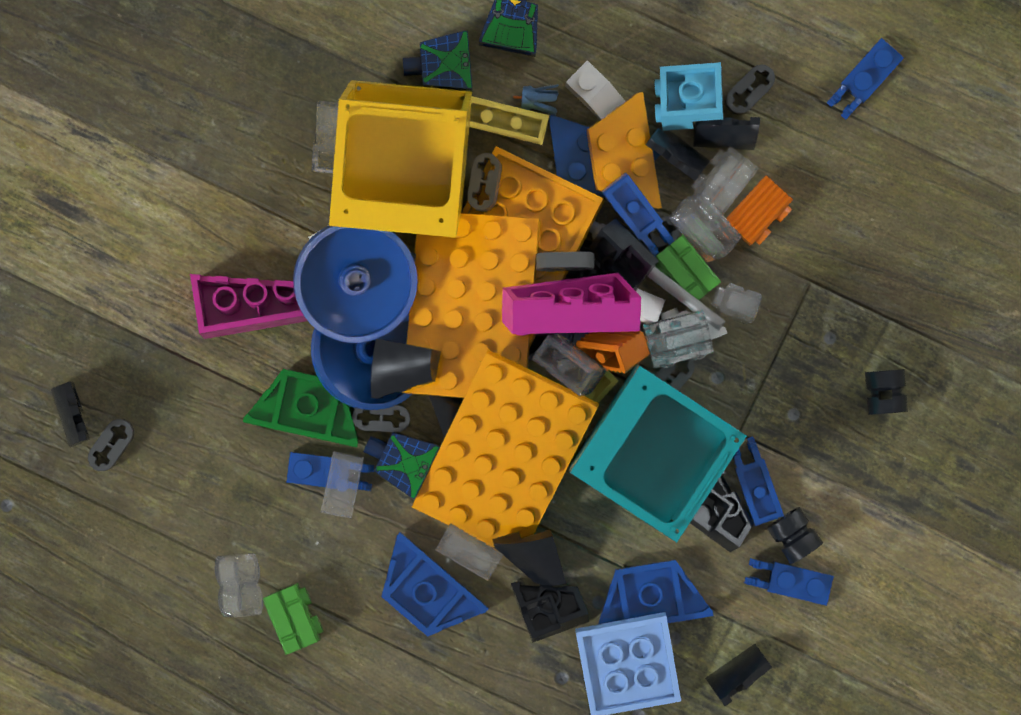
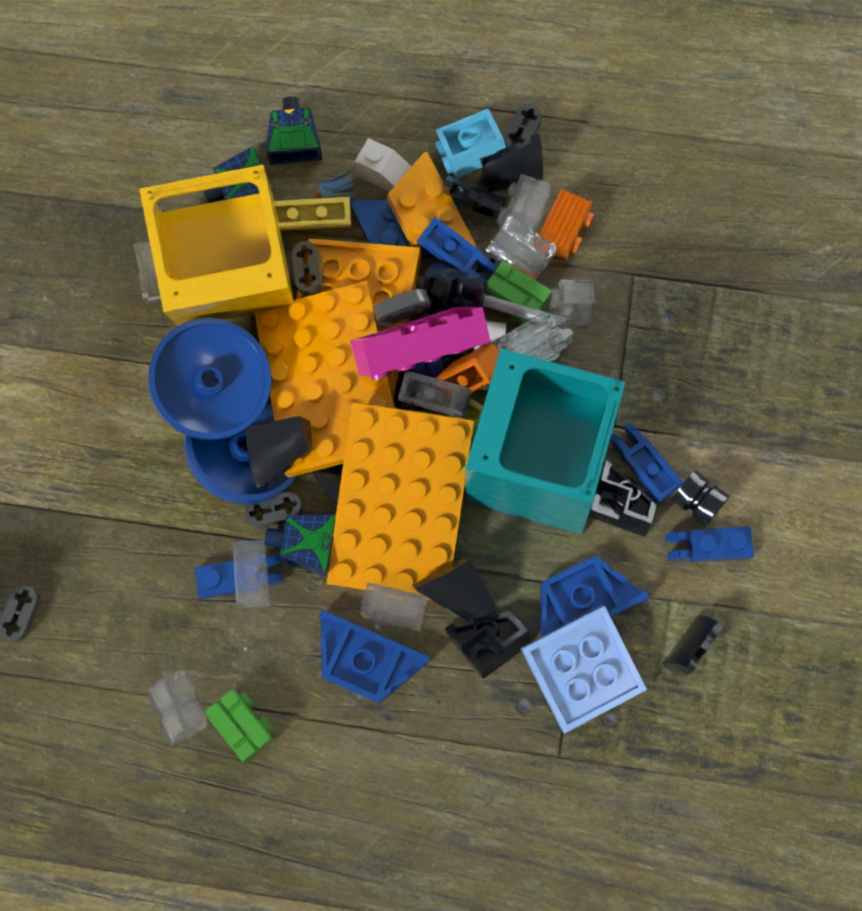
camera: 15 degrees left, 15 degrees down
(242, 305) = (115, 442): dark pink wedge -> none
(303, 407) = (196, 522): green wing -> none
(867, 75) = (621, 90): blue hinge -> none
(882, 381) = (732, 335): black wheel -> none

